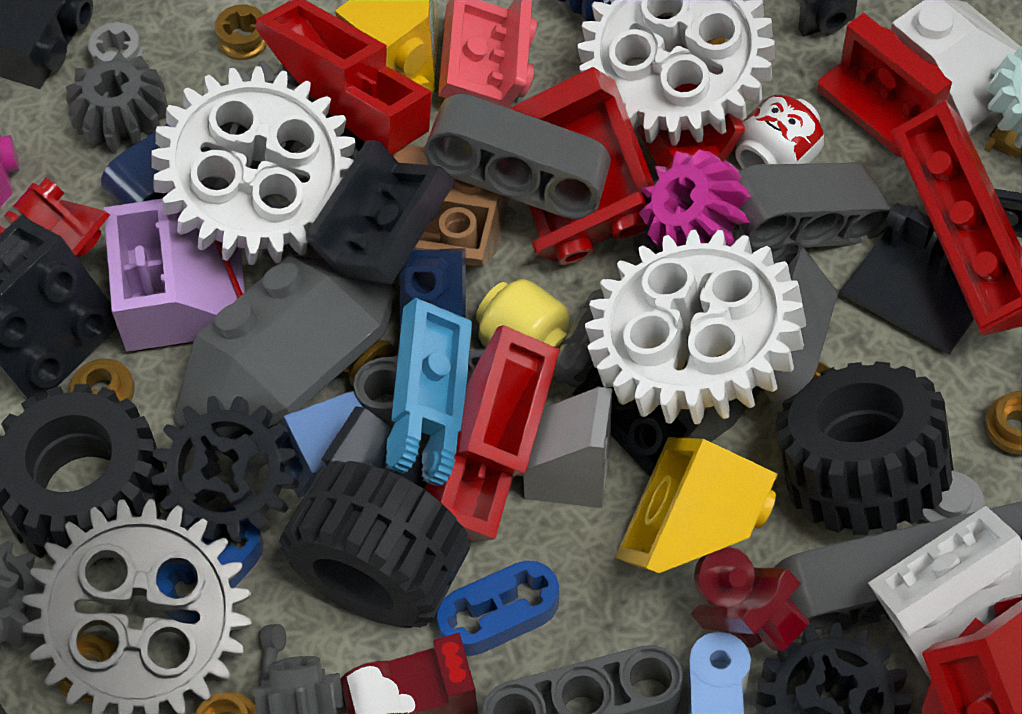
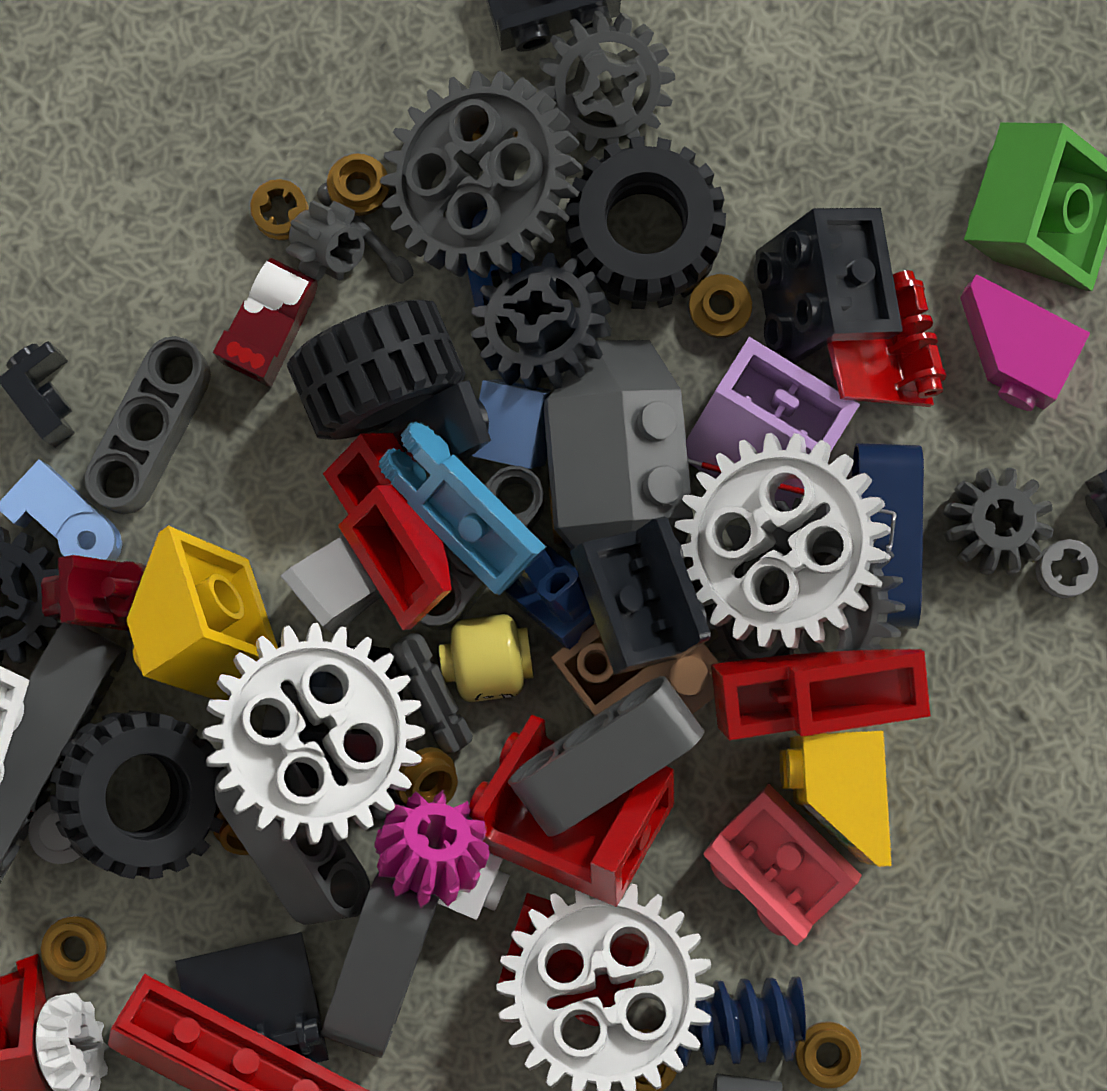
camera: 130 degrees right, 25 degrees up
(234, 44) = (1004, 704): pearl gold bush -> none
(492, 594) = (263, 435): blue beam -> none
(780, 133) = (470, 1022): white head -> none

